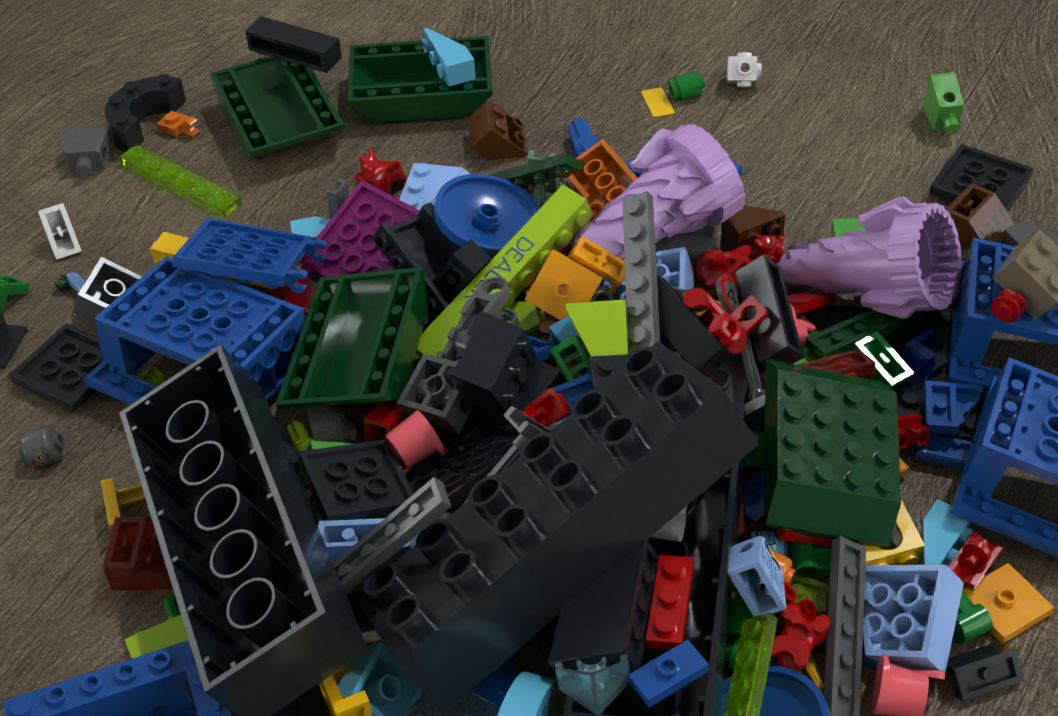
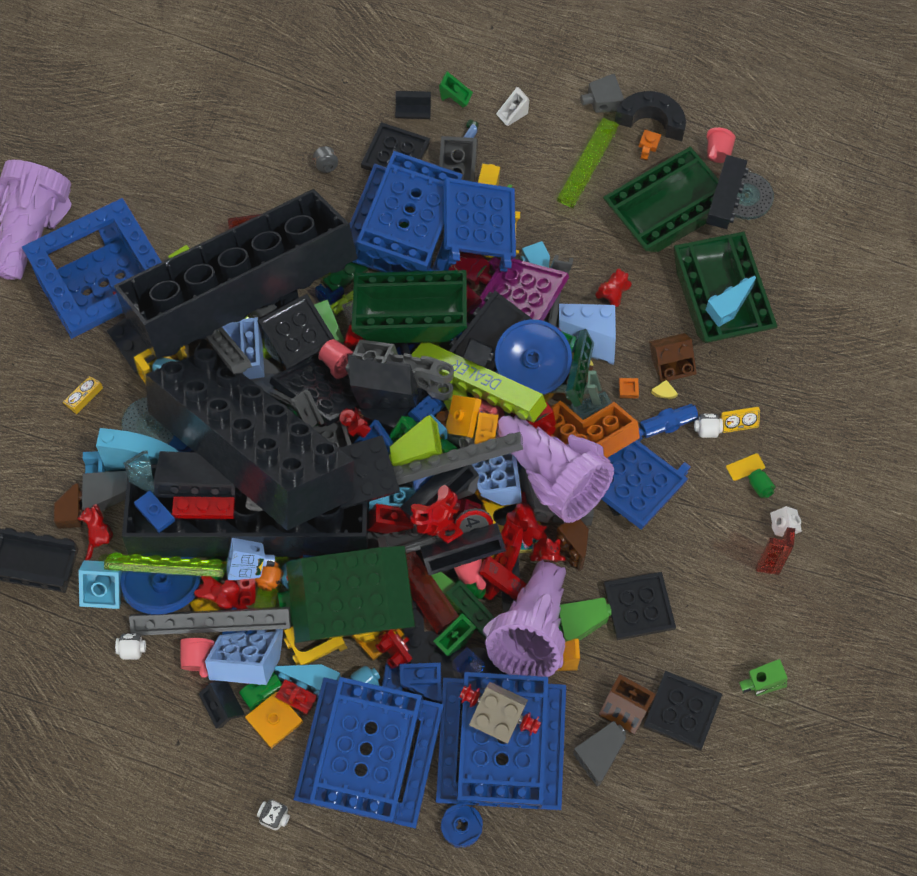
camera: 75 degrees right, 20 degrees up
(210, 58) = (719, 144): none -> coral hat
(542, 148) = (664, 390): none -> light yellow tile
(597, 94) = (740, 419): none -> slope
(601, 115) = (708, 425): none -> white head
(793, 56) = (776, 553): none -> clear red fence
(834, 197) = (639, 606): none -> black plate
(942, 477) = (366, 675): none -> medium azure head

